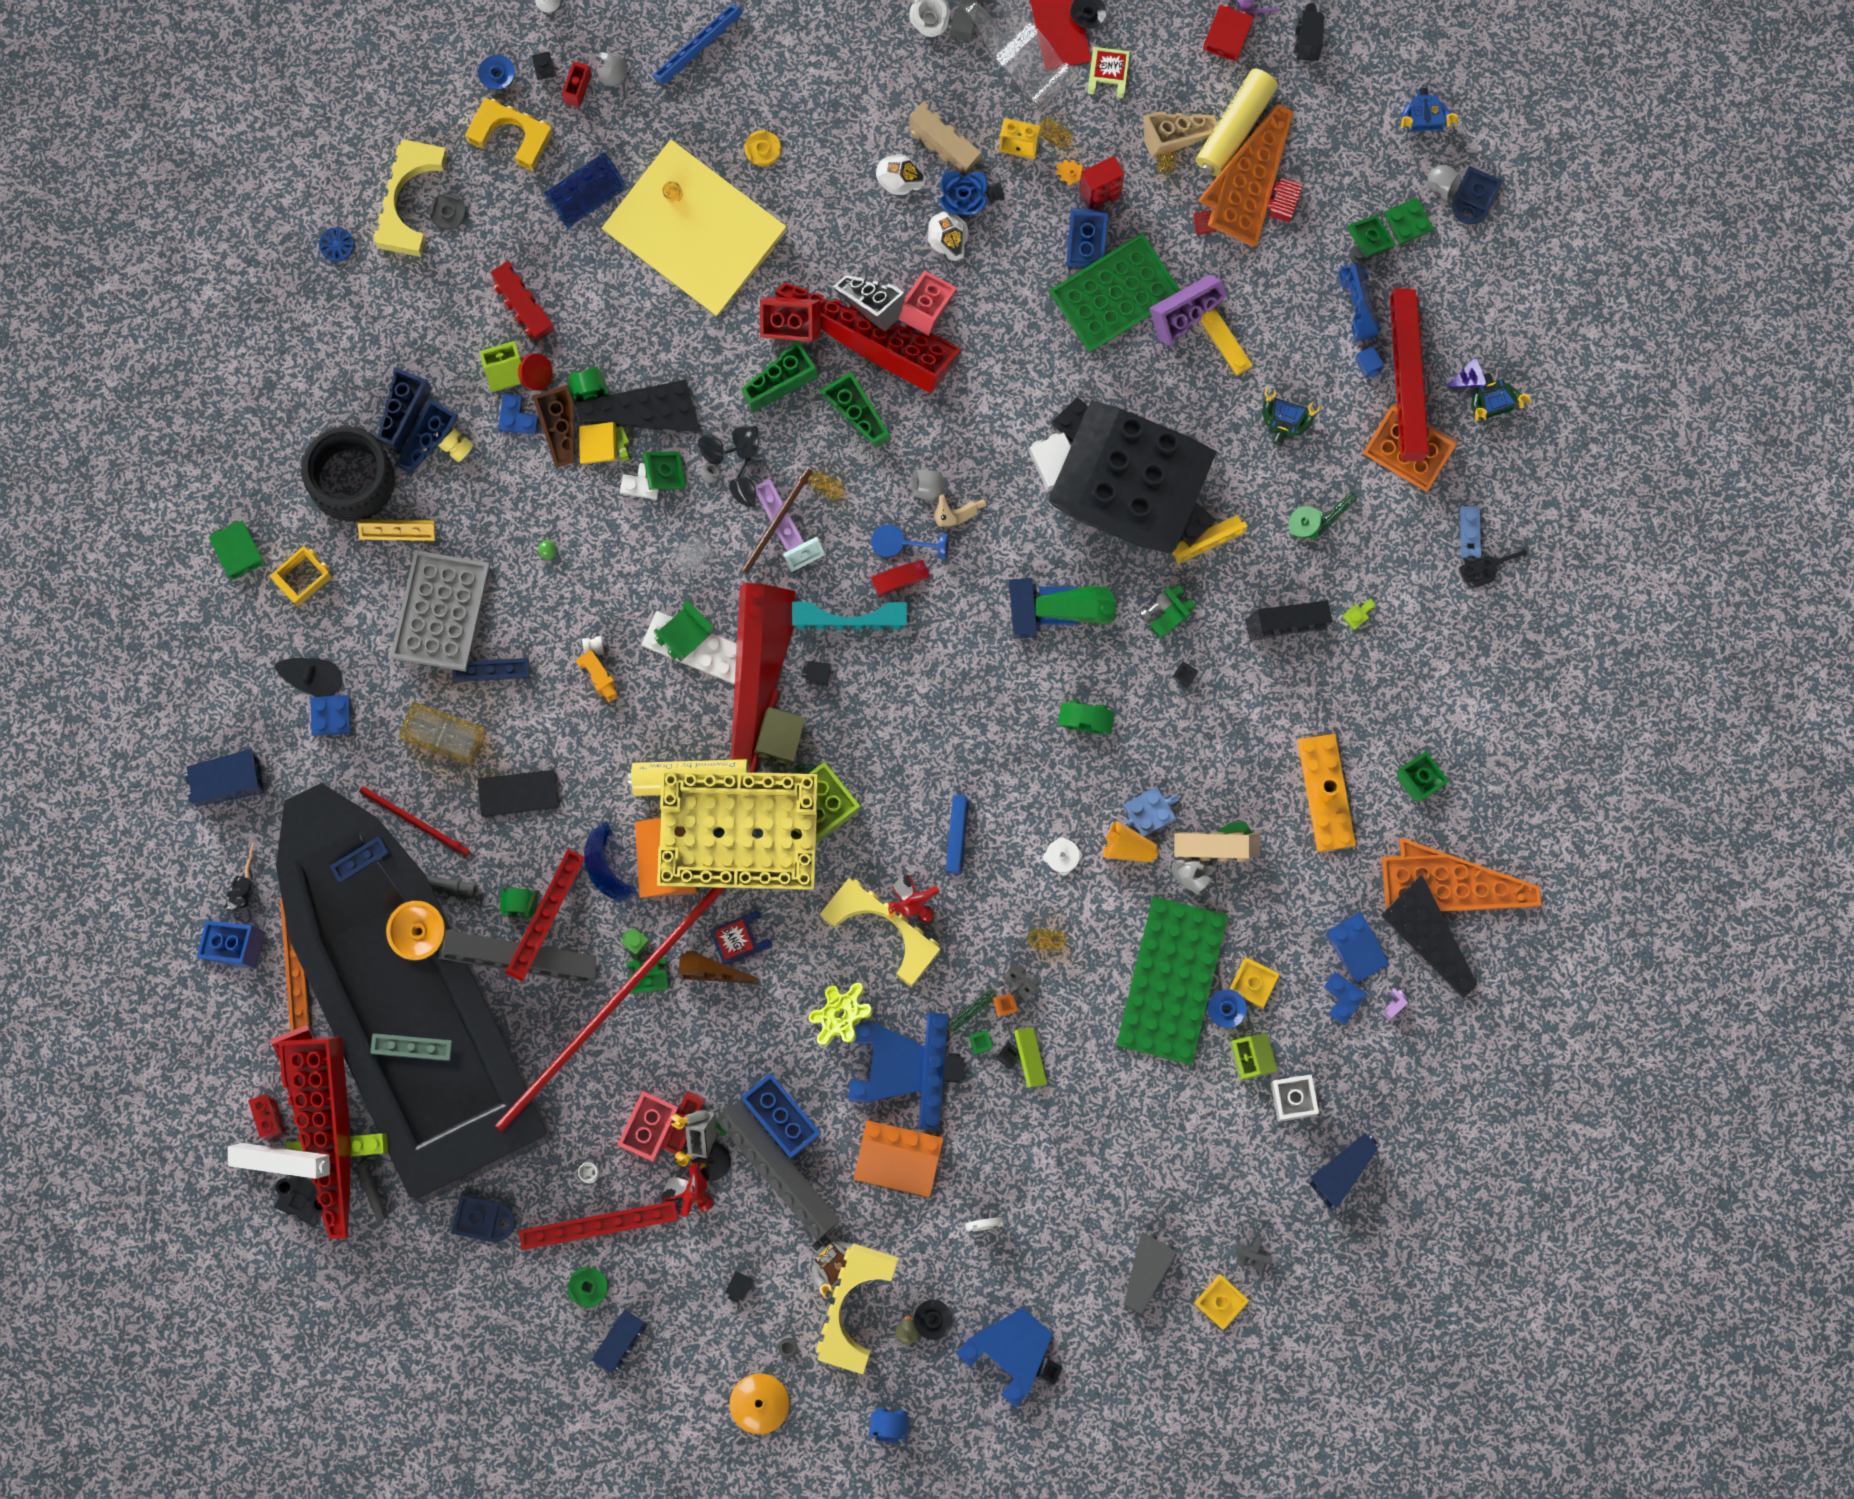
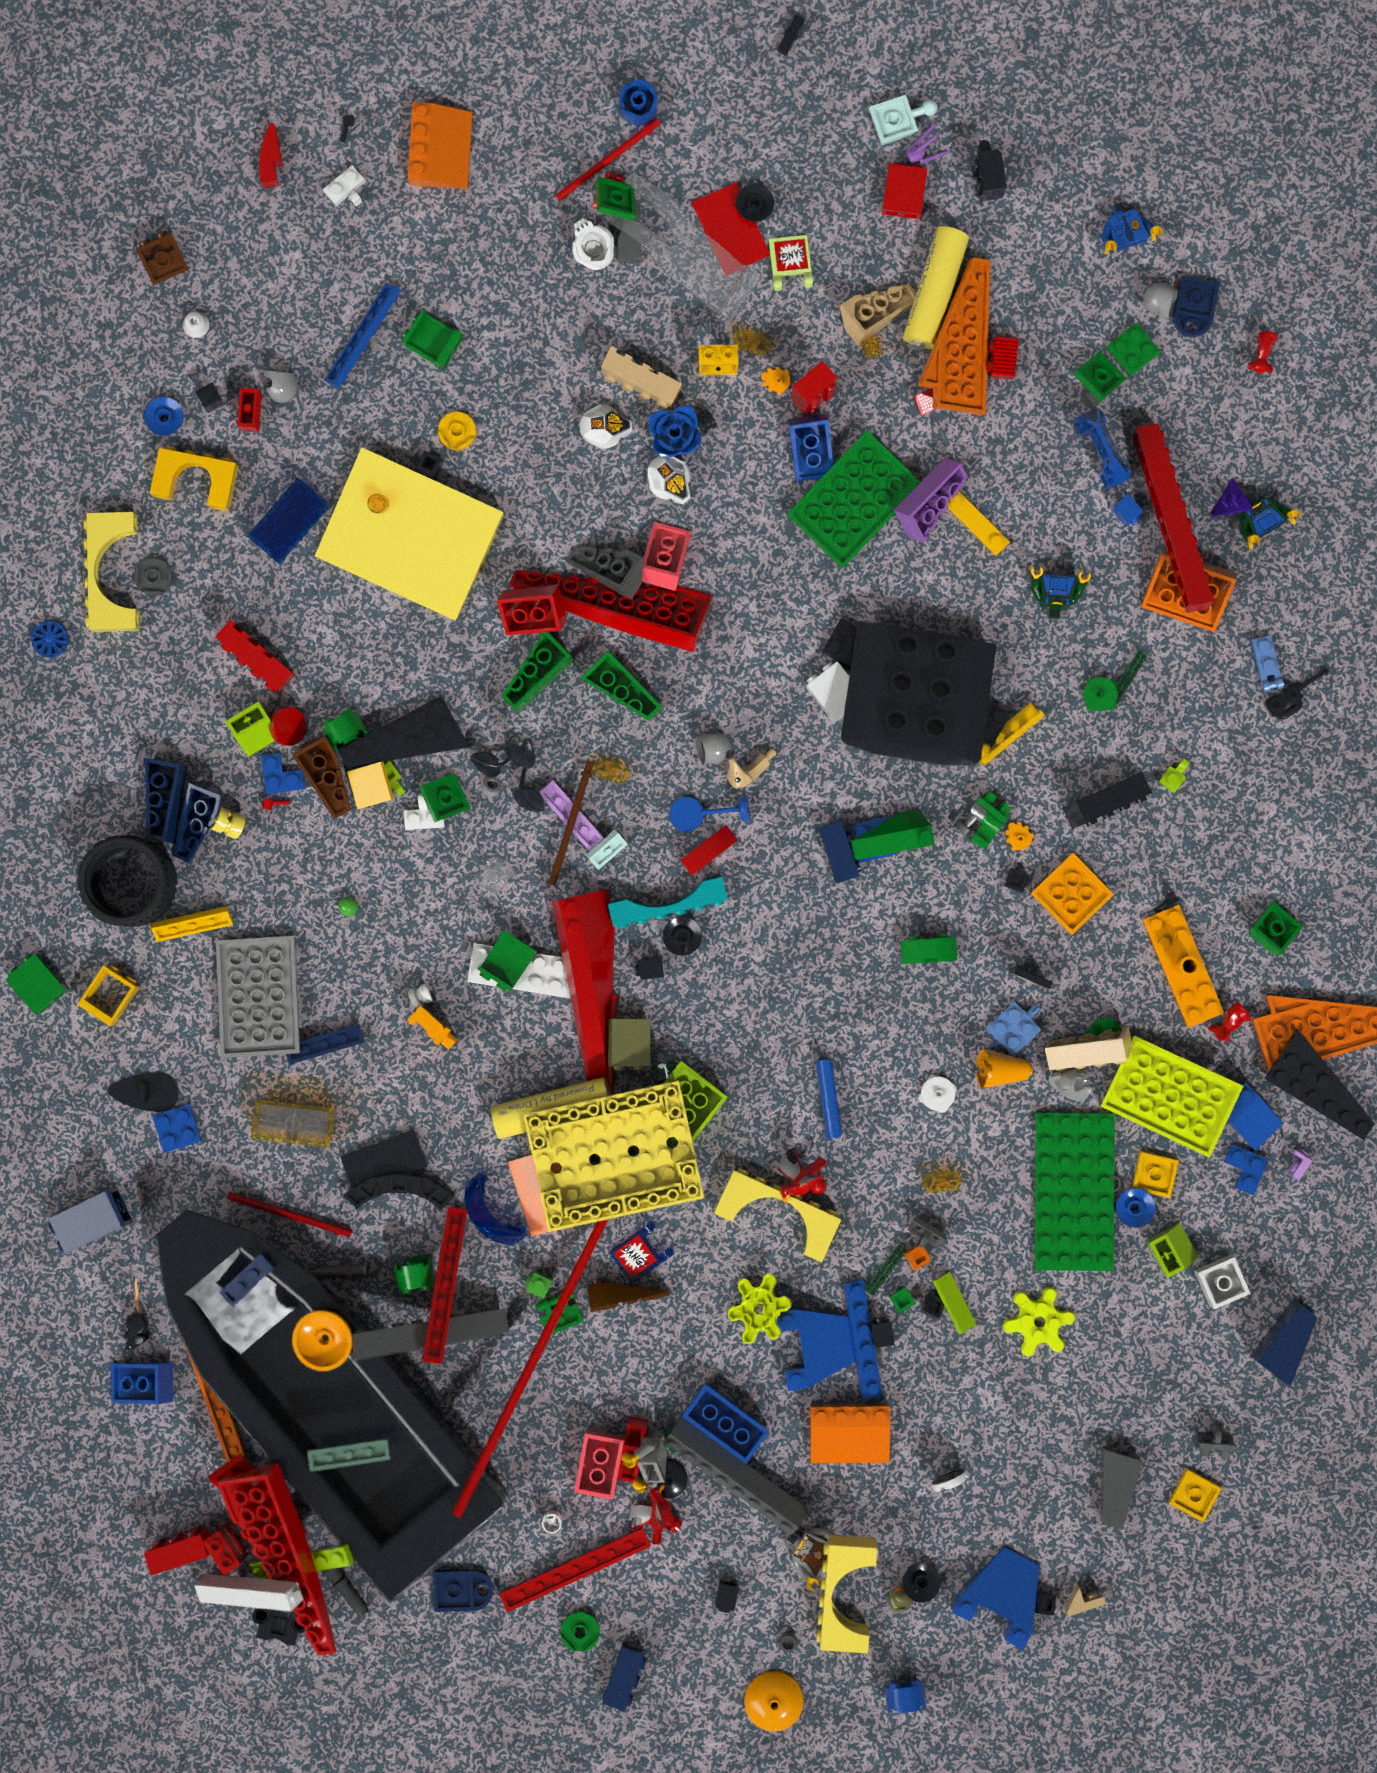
camera: 10 degrees left, 10 degrees up
(220, 1109) = (177, 1550): none -> red brick
(498, 438) = (268, 803): none -> red hand
(525, 815) = (399, 1183): none -> black tile
(730, 165) = (430, 458): none -> black brick
(760, 63) = (432, 339): none -> green panel
(852, 641) = (677, 926): none -> black dish
(1081, 1378) = (1078, 1604): none -> tan slope
(1098, 1106) = (1025, 1321): none -> neon yellow plate
(1176, 765) = (1030, 977): none -> black tile
(1197, 635) = (1019, 836): none -> light orange piece
(1235, 699) = (1072, 893): none -> light orange plate
(1286, 908) = (1172, 1097): none -> neon yellow plate
(1324, 729) = (1167, 901): none -> black hand
(1363, 851) = (1233, 1019): none -> red animal
(1533, 241) = (1265, 341): none -> red animal

